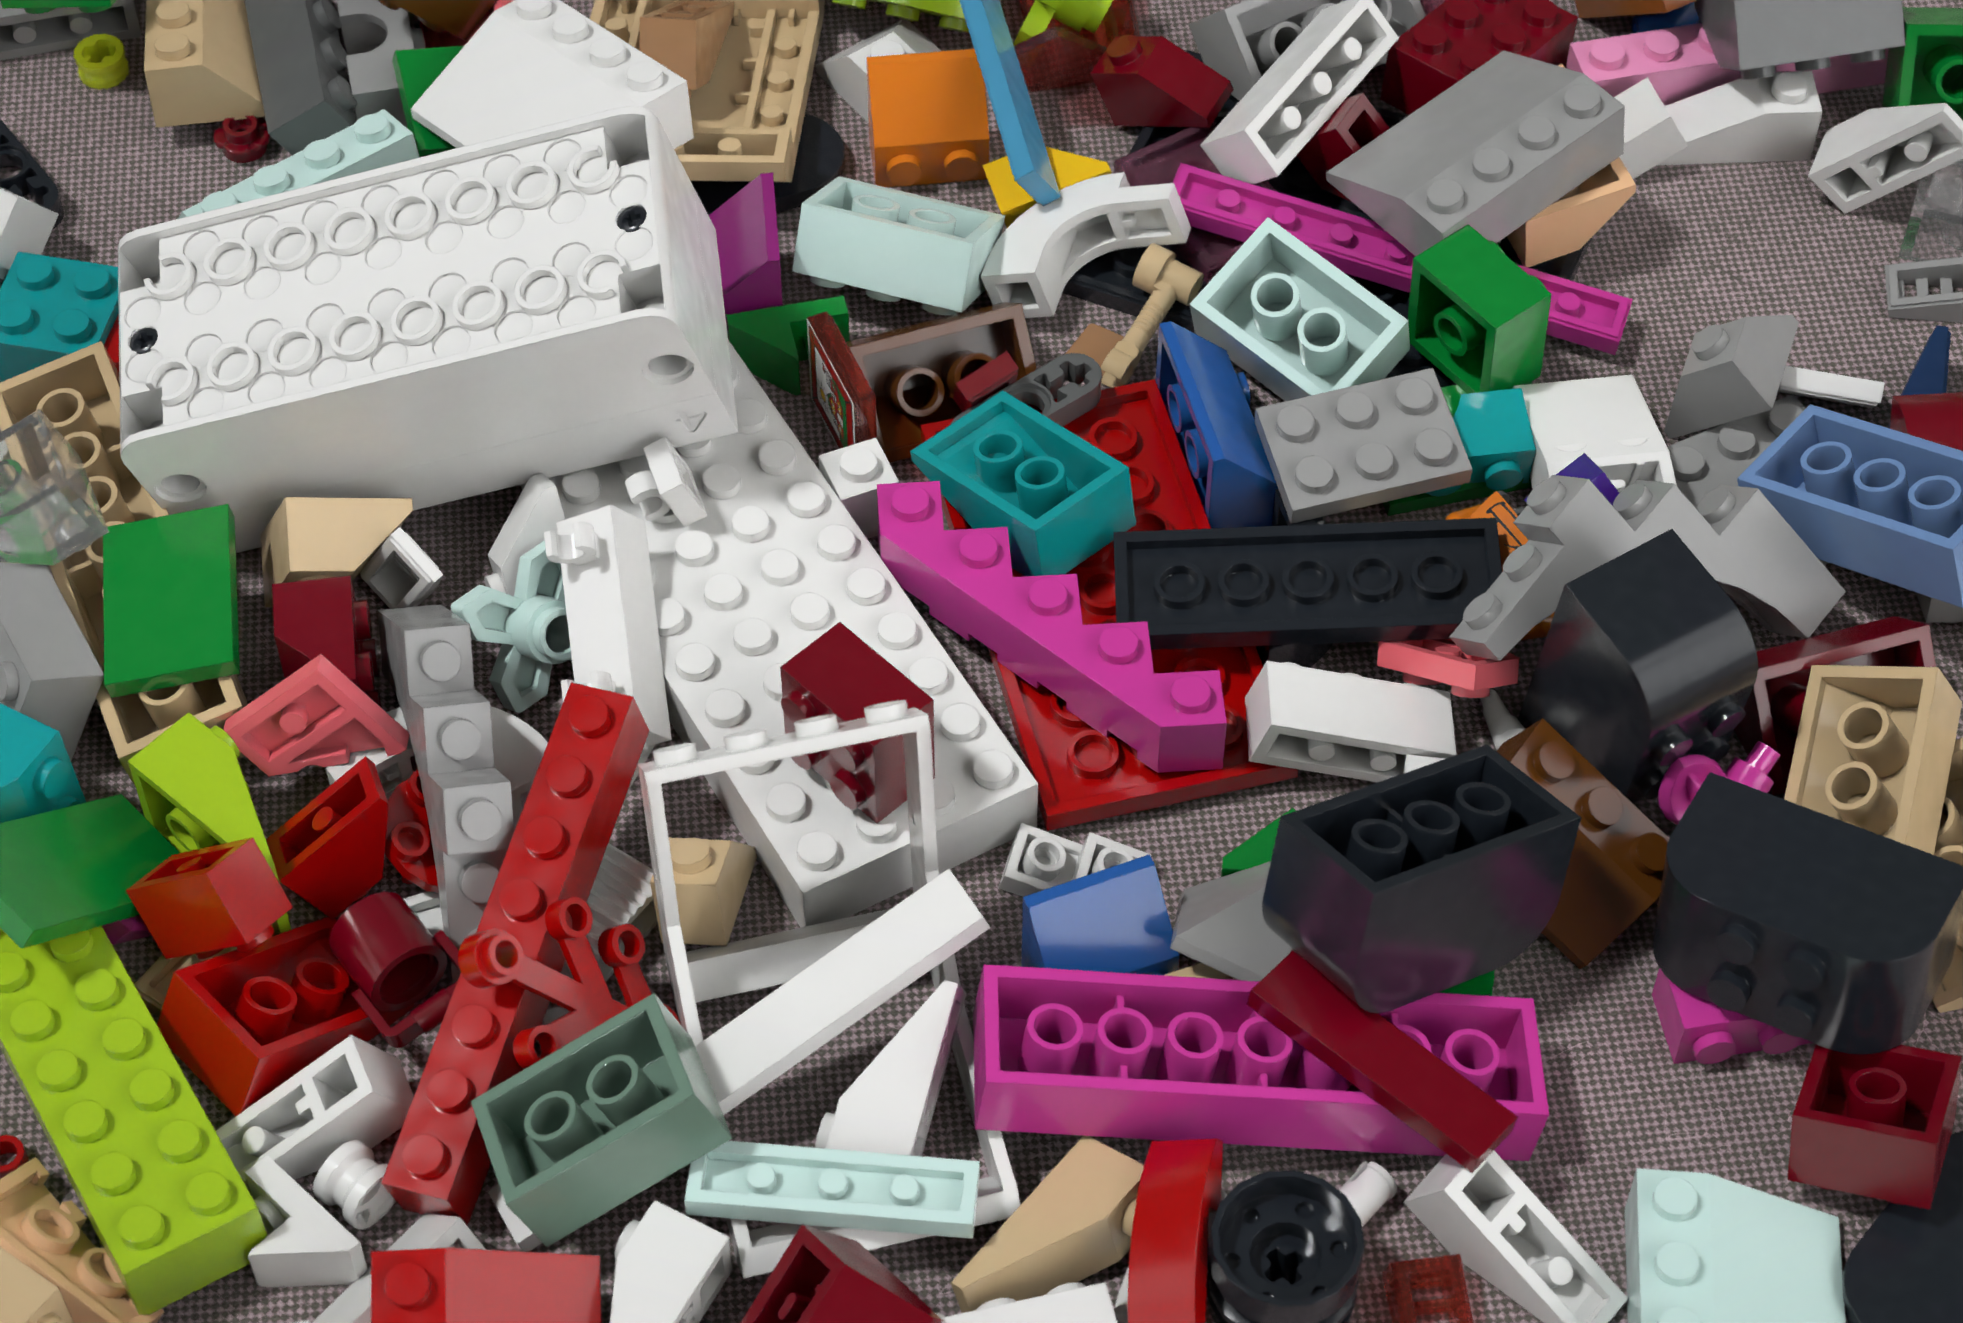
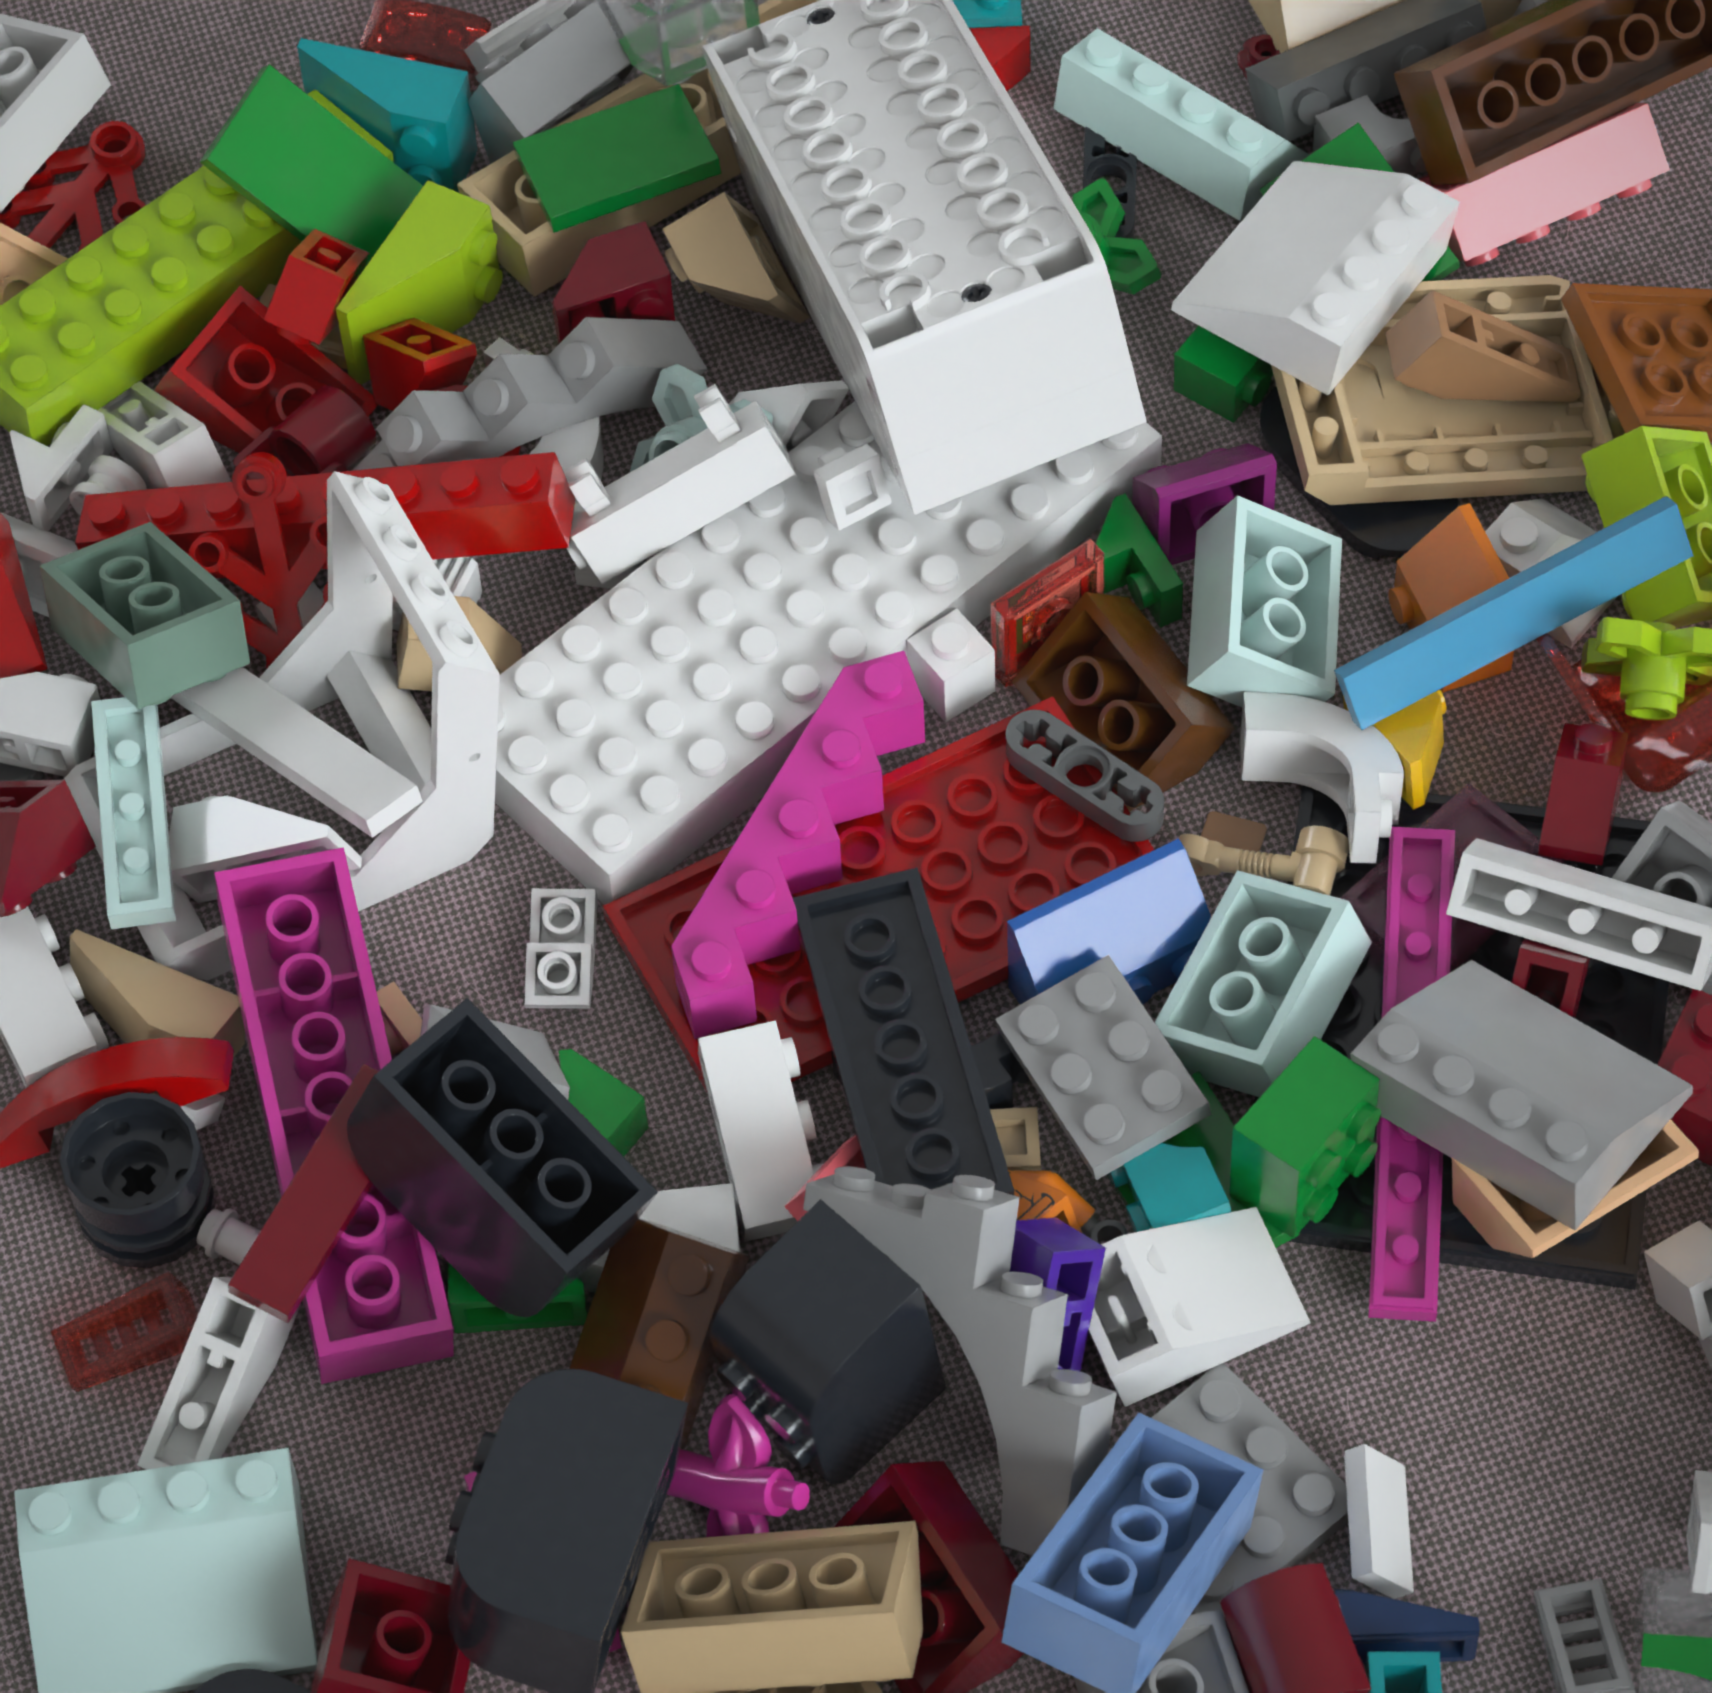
camera: 80 degrees right, 5 degrees up
(312, 720) = (519, 297): coral wing -> none
(401, 572) = (737, 331): white slope -> none
(842, 678) = (582, 687): dark red brick -> none
(985, 381) = (1094, 726): dark red tile -> none
(1035, 478) = (961, 785): teal slope -> none
(1101, 923) = (445, 955): slope -> none
(1731, 372) = (1342, 1407): light grey slope -> none

